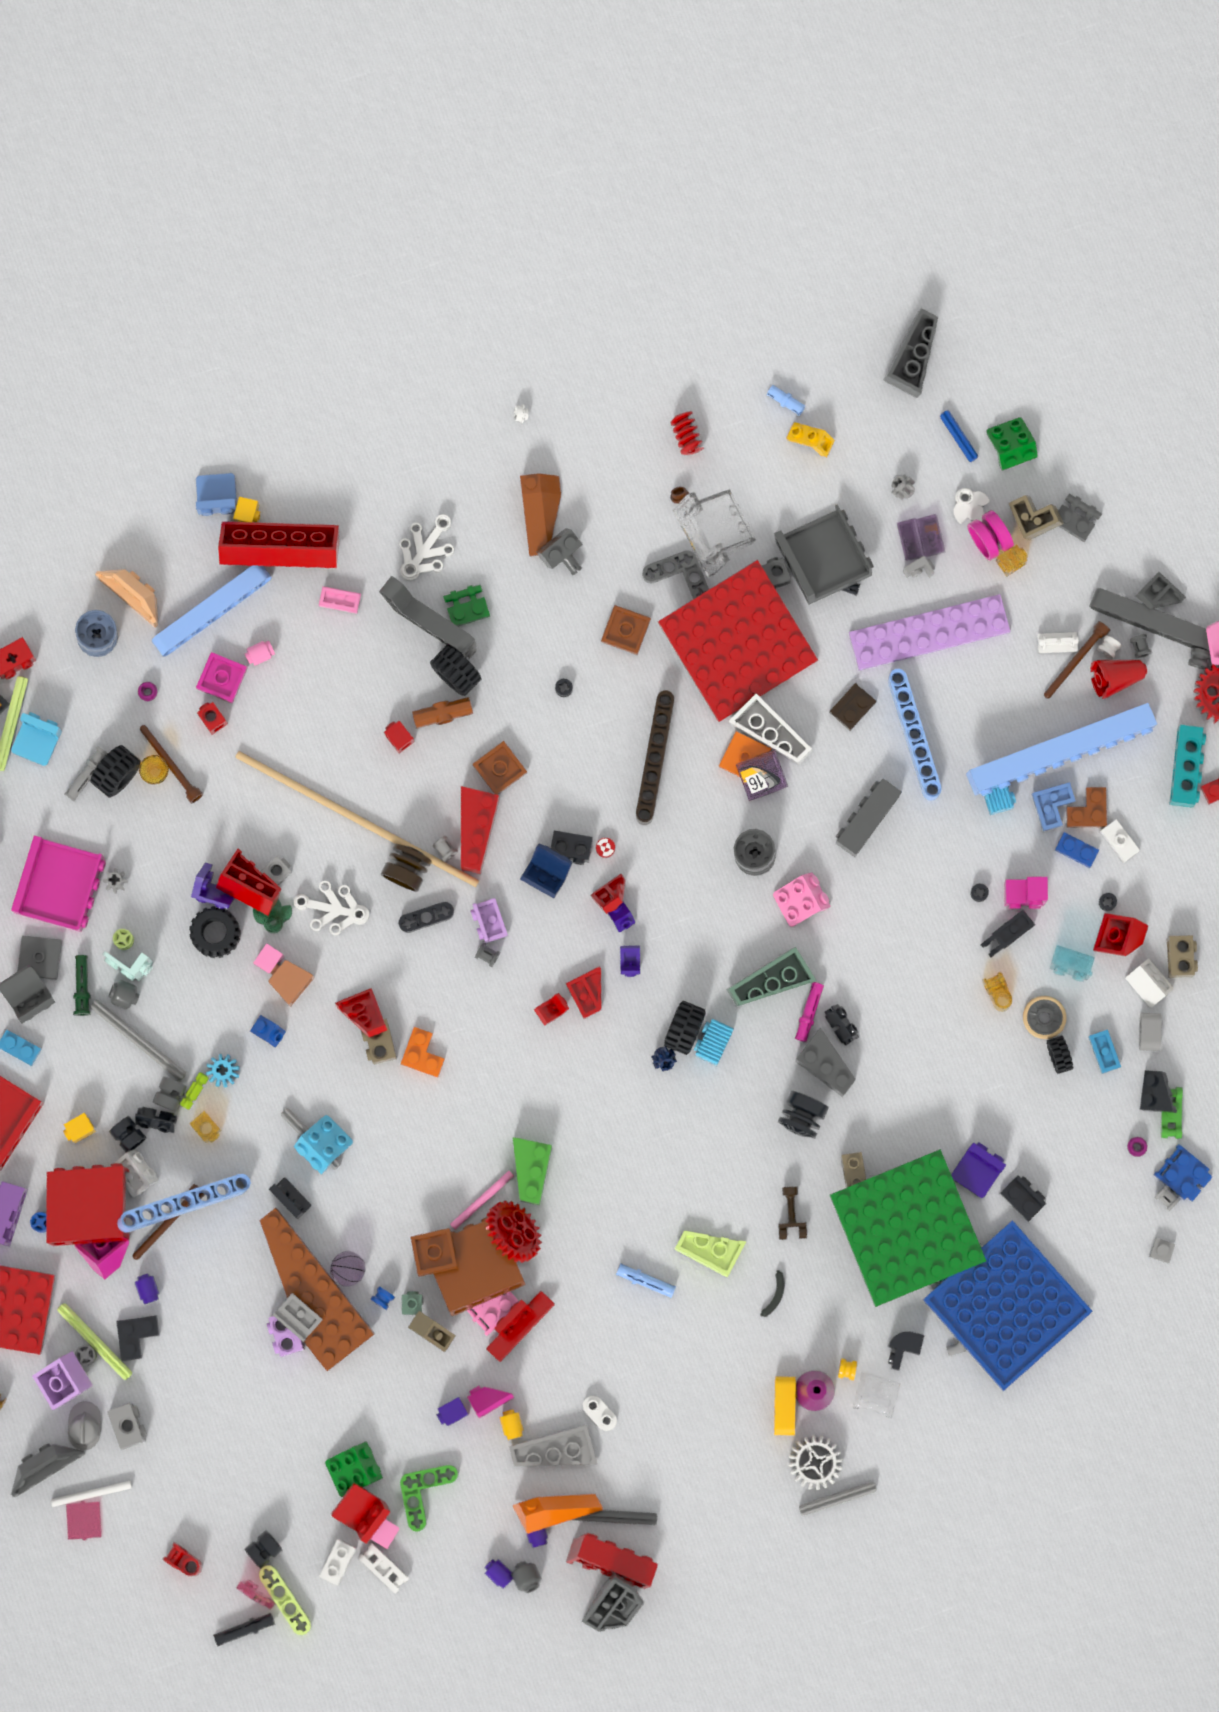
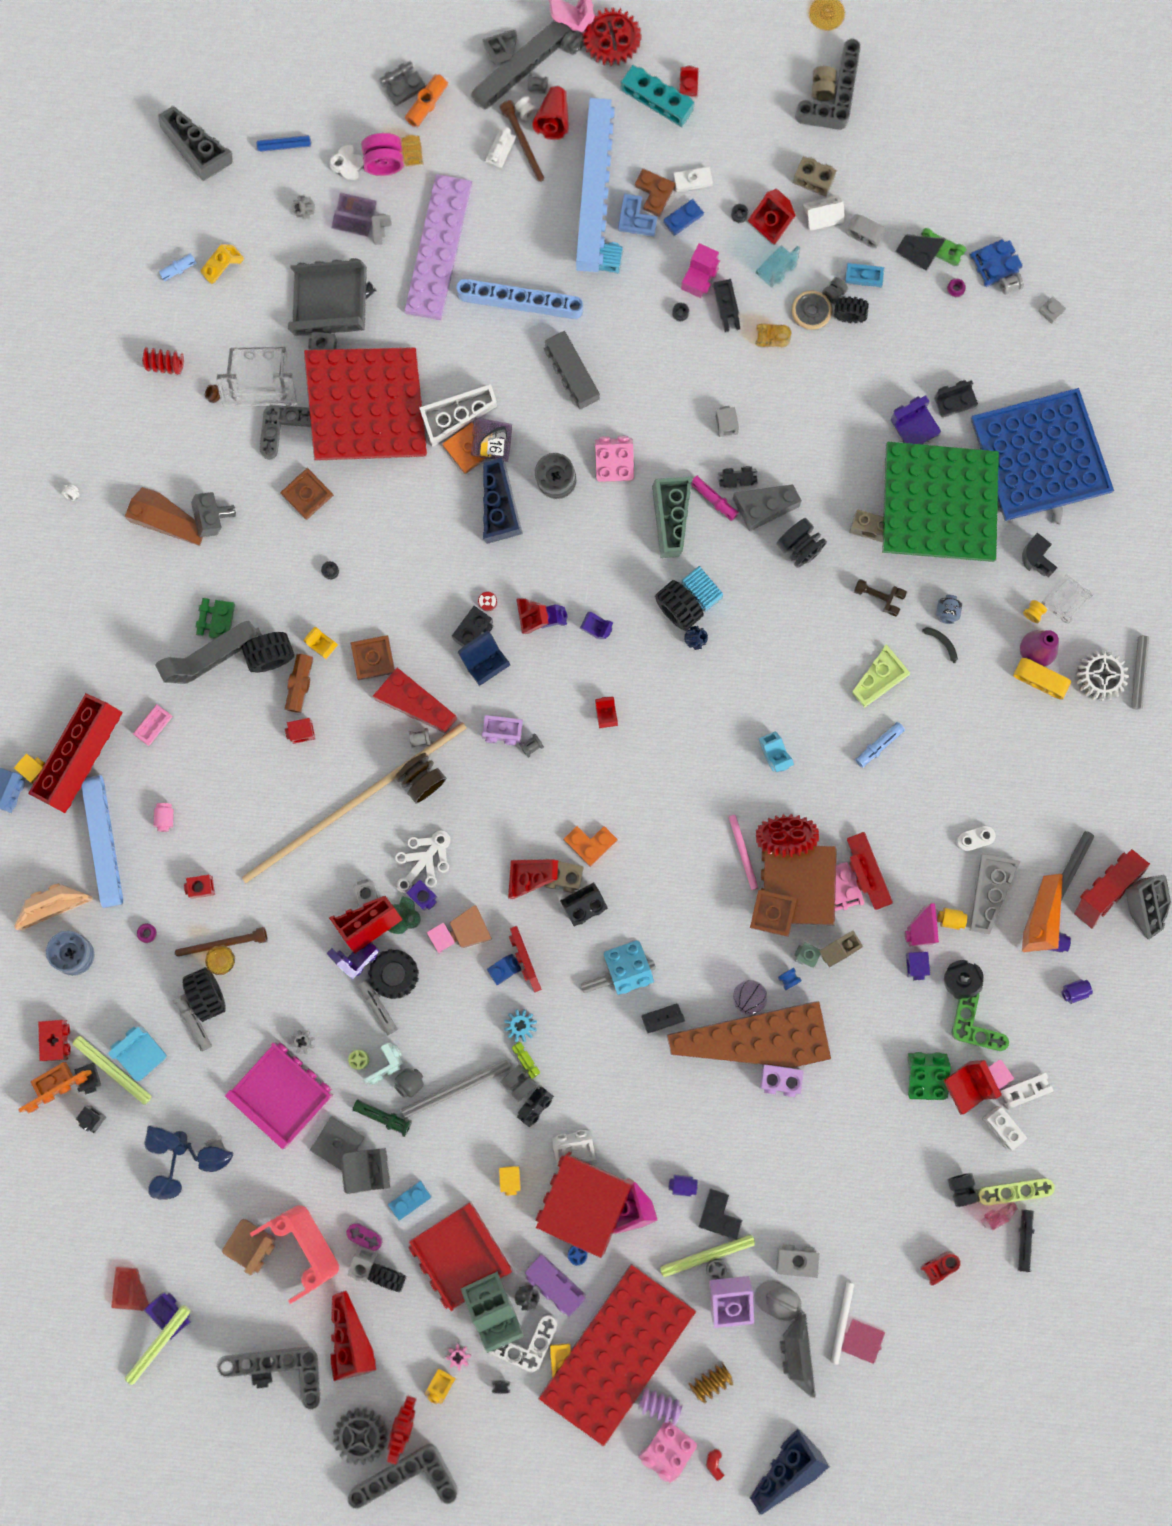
camera: 65 degrees left, 0 degrees up
(128, 1135) = (536, 1138): black wheel -> none
(160, 1230) = (619, 1102): reddish brown piece -> none
(165, 953) = (389, 1027): none -> light grey pin
(177, 1209) = (624, 1124): light blue beam -> none
(197, 1125) = (555, 1064): clear yellow brick -> none
(221, 677) = (168, 861): dark pink plate -> none
(285, 1040) = (523, 957): none -> red wing
(297, 1317) = (774, 1061): light grey plate -> none
(299, 914) = (416, 890): none -> dark purple brick
(363, 1071) = (582, 901): none -> black brick
(414, 927) = (468, 768): black beam -> none
(424, 550) = (146, 632): white plant -> none
(451, 1468) = (963, 989): none -> black plate
(489, 713) = (320, 642): none -> yellow bracket
(526, 1577) = (1091, 968): dark grey head -> none
(531, 1168) = (737, 795): bright green wedge -> none
(587, 992) = (606, 676): red wing -> none
(589, 1185) = (775, 752): none -> medium azure brick
(658, 748) = (425, 514): dark brown beam -> none
(703, 812) = (500, 510): none -> dark blue wedge
(809, 1286) = (949, 609): none -> sand blue head
(852, 707) = (470, 339): dark brown plate -> none
(891, 988) = (727, 421): none -> light grey brick
(1012, 443) = (313, 100): green bracket -> none
(1034, 522) = (387, 117): dark tan brick -> none
(1074, 1030) = (835, 290): none -> dark grey wheel
(1082, 550) = (421, 109): none -> orange piece

